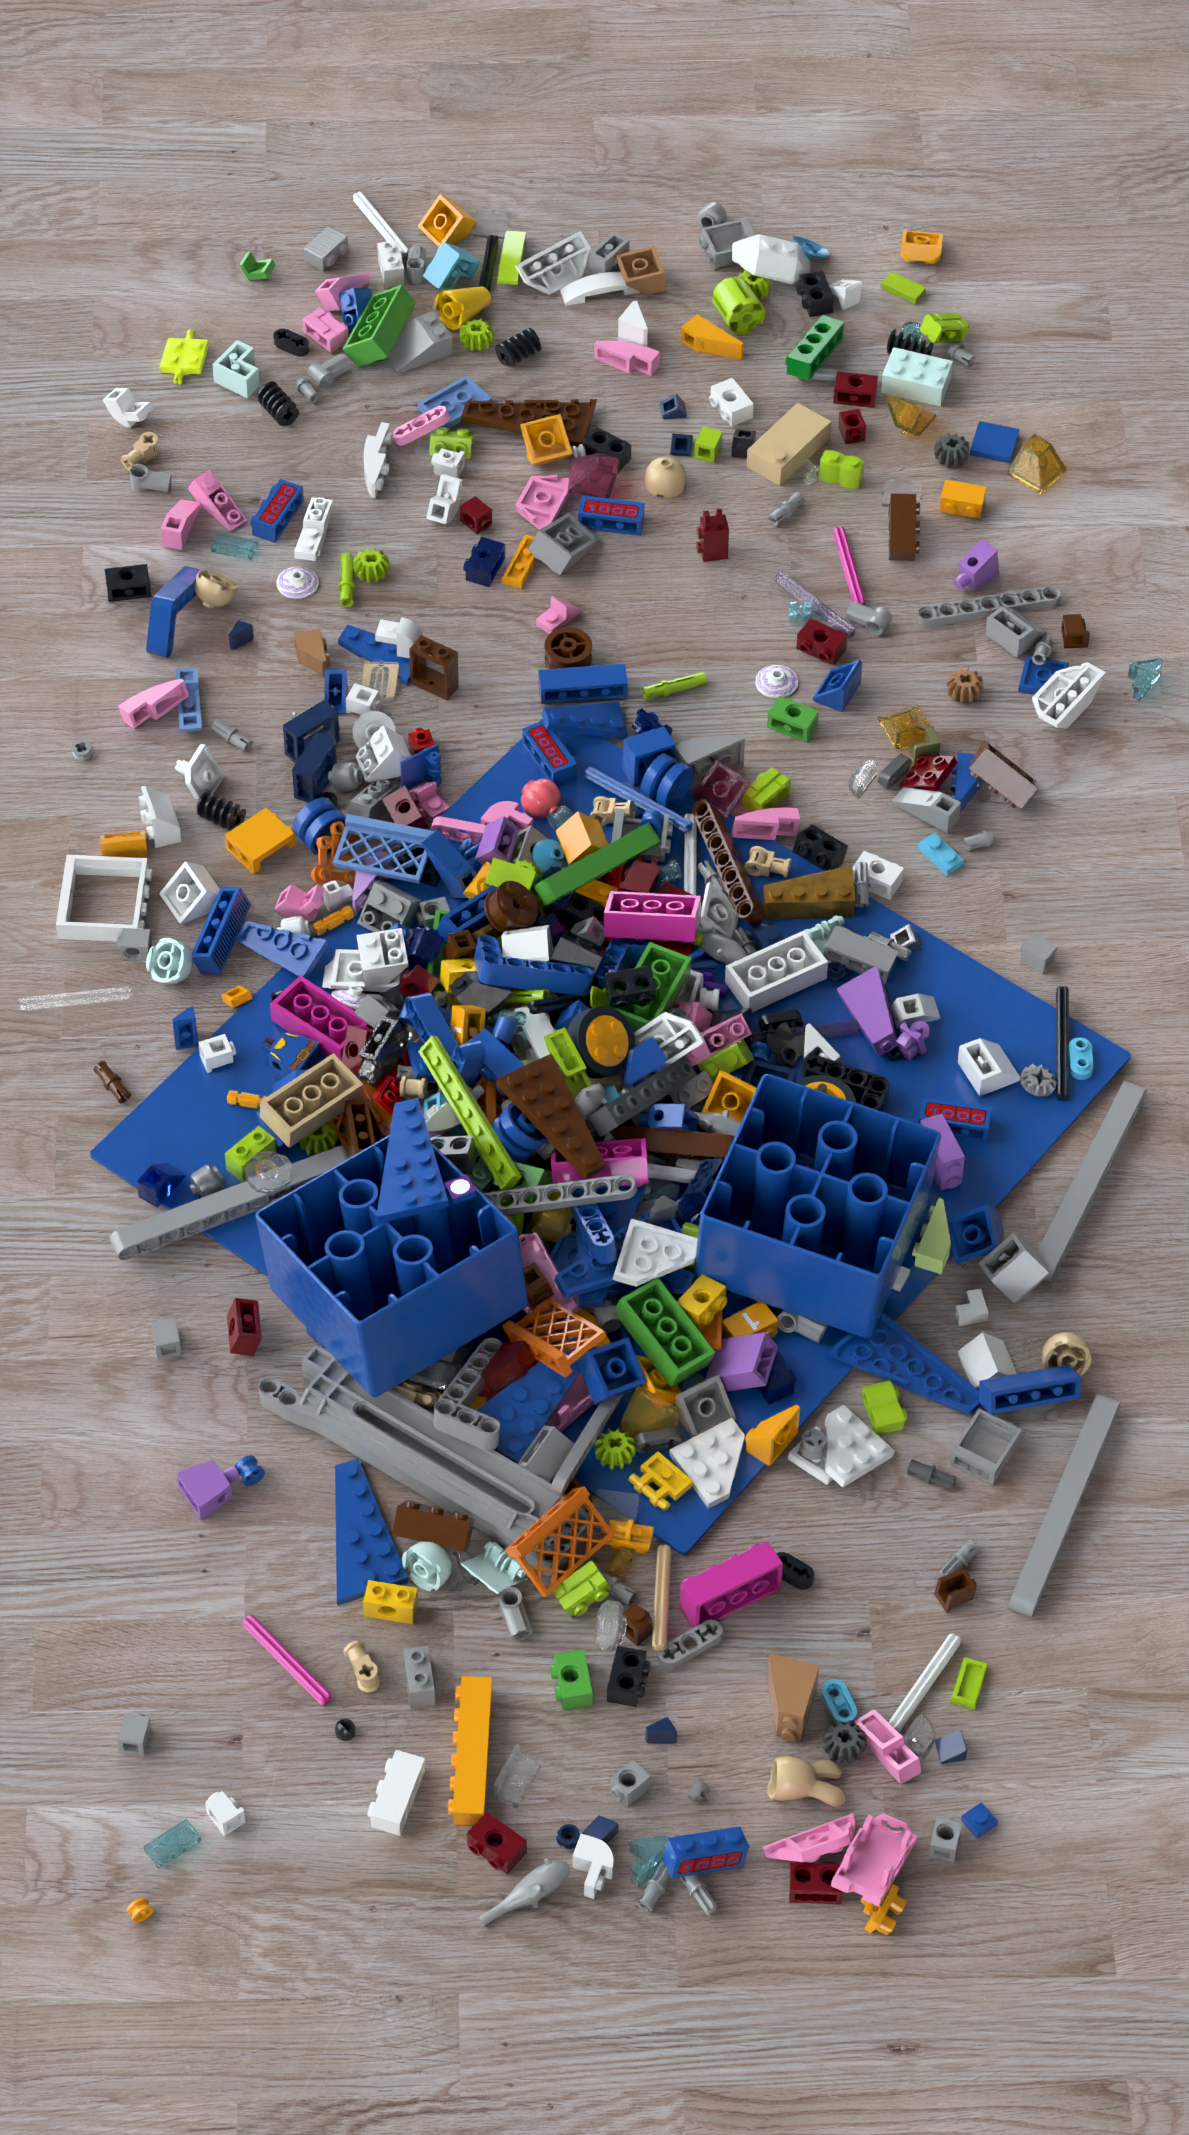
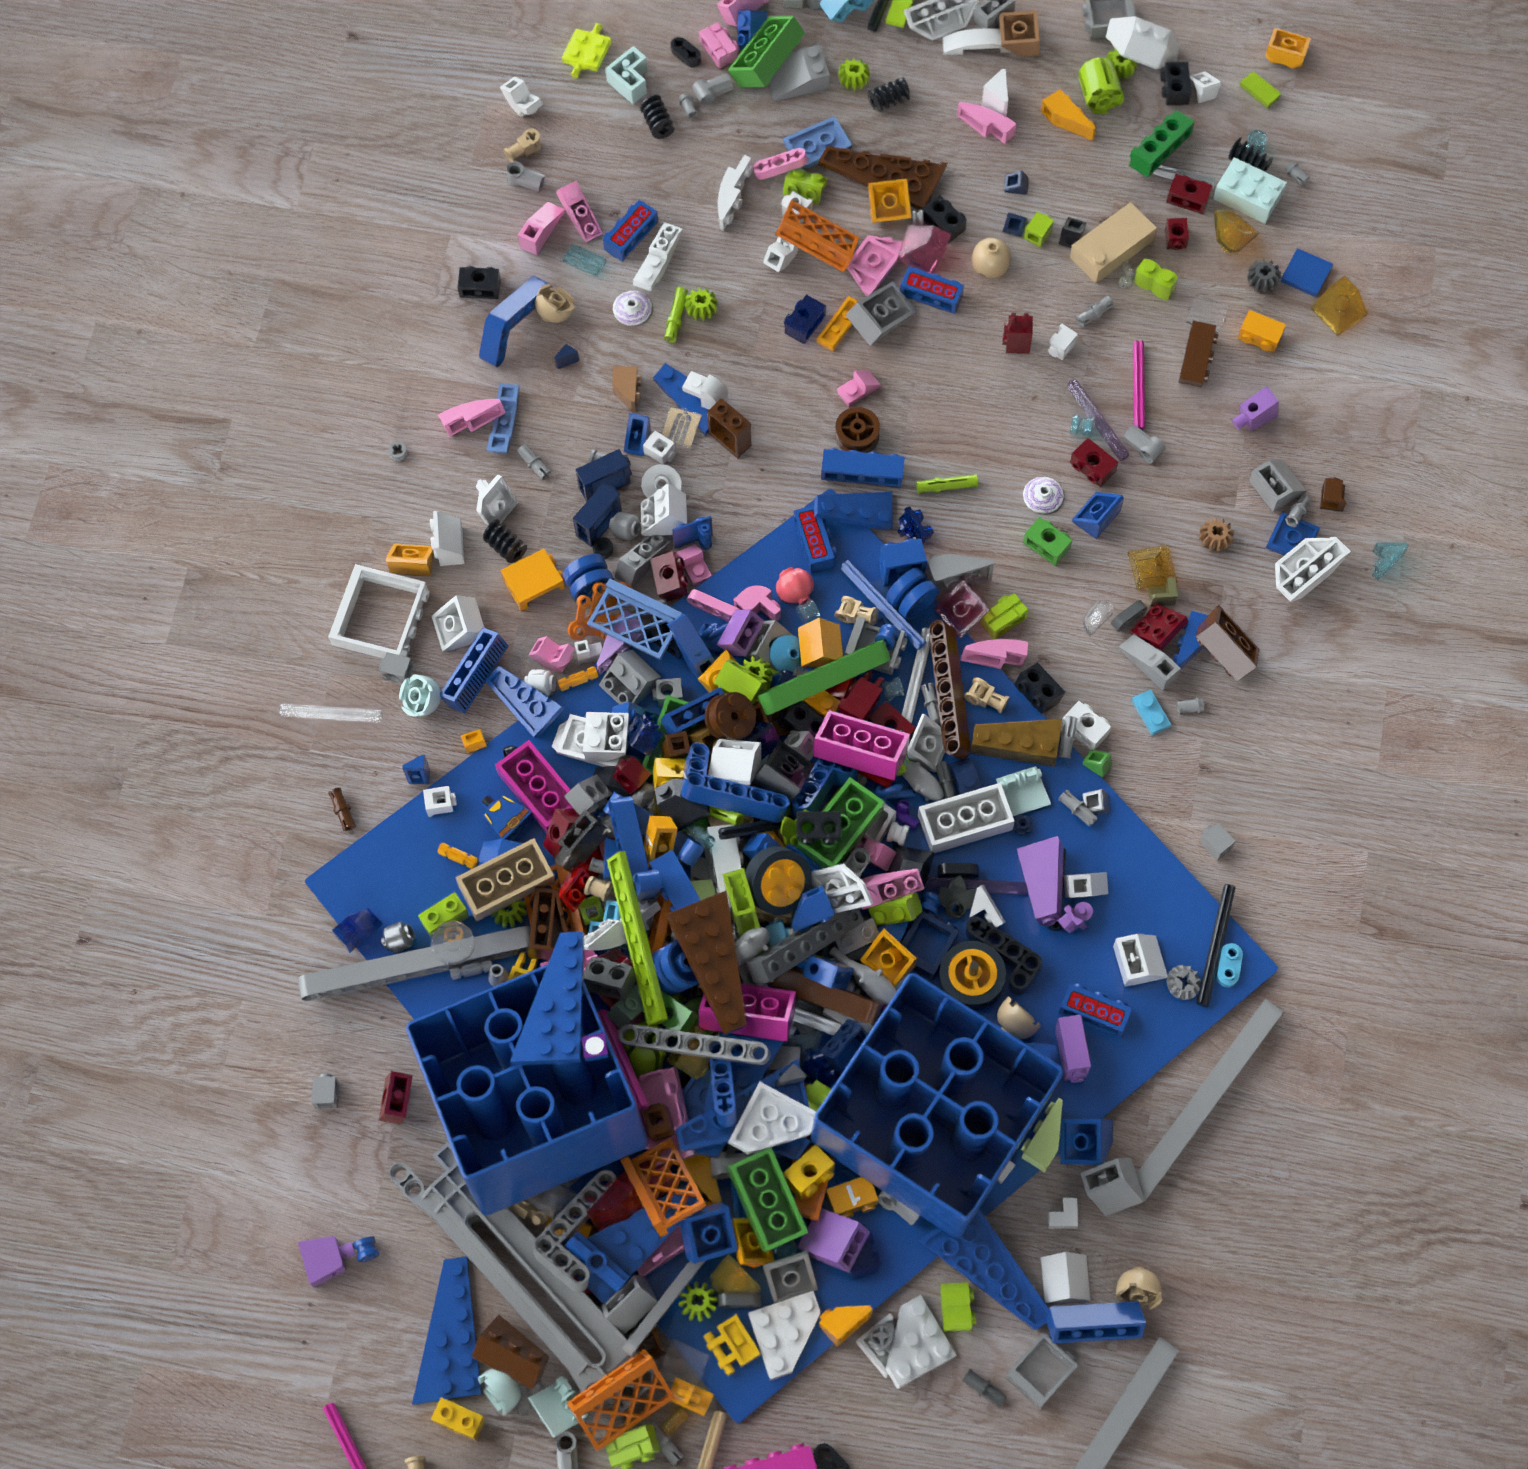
camera: 15 degrees right, 15 degrees up
(350, 997) = (573, 769): white dish -> none
(419, 740) = (701, 503): red brick -> none
(461, 305) = (847, 41): yellow cone -> none
(476, 515) = (808, 268): dark red brick -> none
(479, 482) = (819, 245): none -> orange fence
(517, 1423) = (585, 1251): none -> blue piece
(731, 402) = (1067, 178): white brick -> none
(760, 540) = (1062, 342): none -> white brick
(811, 248) = (1183, 32): dark azure dish -> none
(859, 952) = (1049, 813): light grey brick -> none
(898, 905) = (1098, 762): none -> bright green slope
(944, 327) = (1287, 142): lime brick -> none
(980, 611) = (1250, 456): light grey beam -> none

